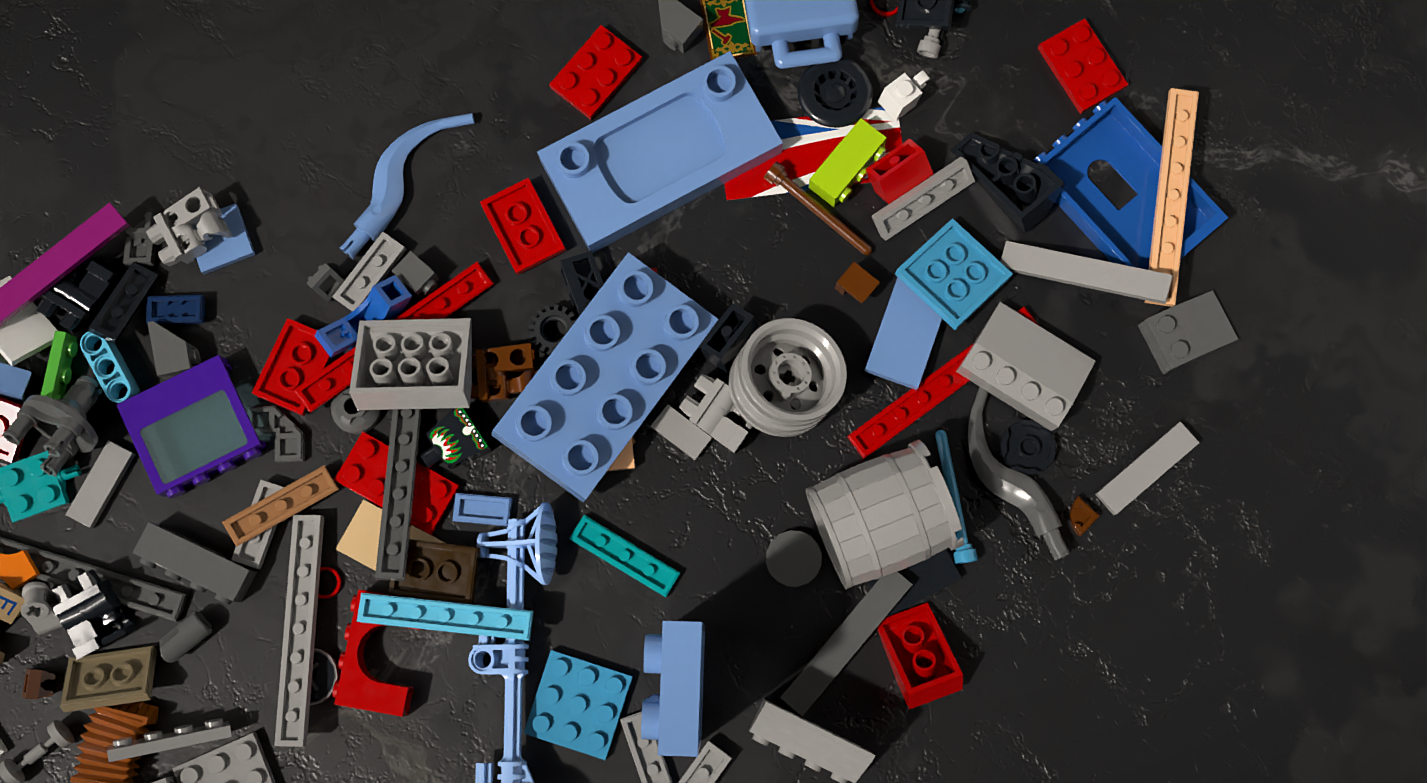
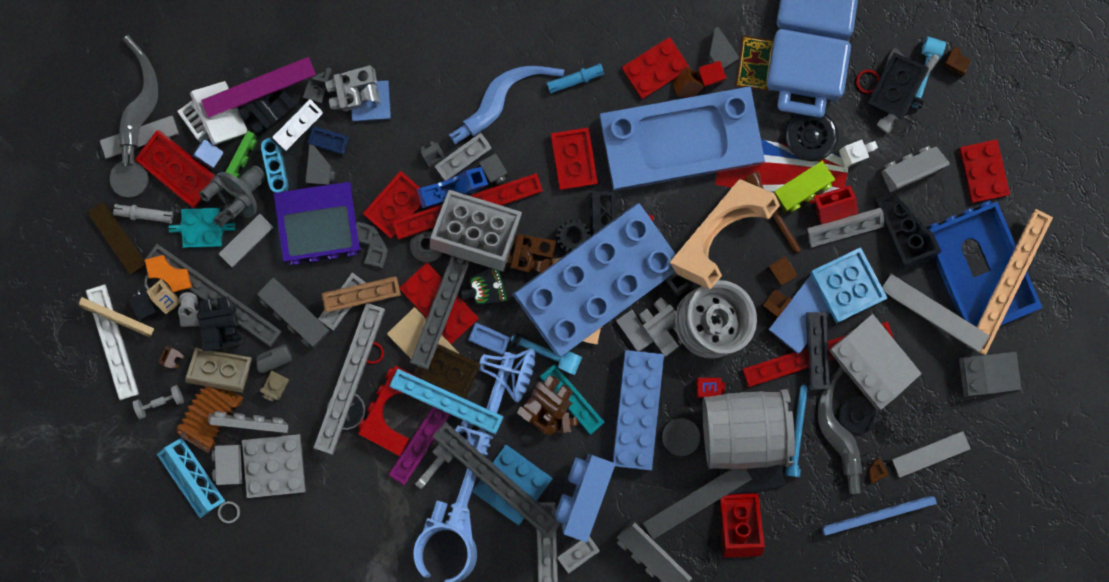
camera: 10 degrees right, 5 degrees up
(198, 676) = (274, 386): none -> dark tan bracket
(429, 692) = (418, 446): none -> magenta tile
(466, 693) = (442, 455): none -> light grey brick
(500, 112) = (575, 78): none -> dark azure pin
(547, 704) = (496, 479): none -> dark grey tile
(588, 573) = (546, 399): none -> reddish brown hips
(601, 504) = (568, 362): none -> medium azure piece
(623, 592) = (563, 424): none -> reddish brown tile
(645, 76) = (688, 83): none -> reddish brown panel
(674, 53) = (712, 73): none -> red panel
(721, 540) = (638, 410): none -> medium blue brick
(768, 208) = (740, 202): none -> light nougat arch
(809, 474) = (709, 387): none -> red brick
(863, 332) = (776, 303): none -> reddish brown panel
(942, 375) = (817, 350): none -> black tile
(988, 90) = (914, 168): none -> light grey slope
(1105, 577) = (878, 515): none -> medium blue tile

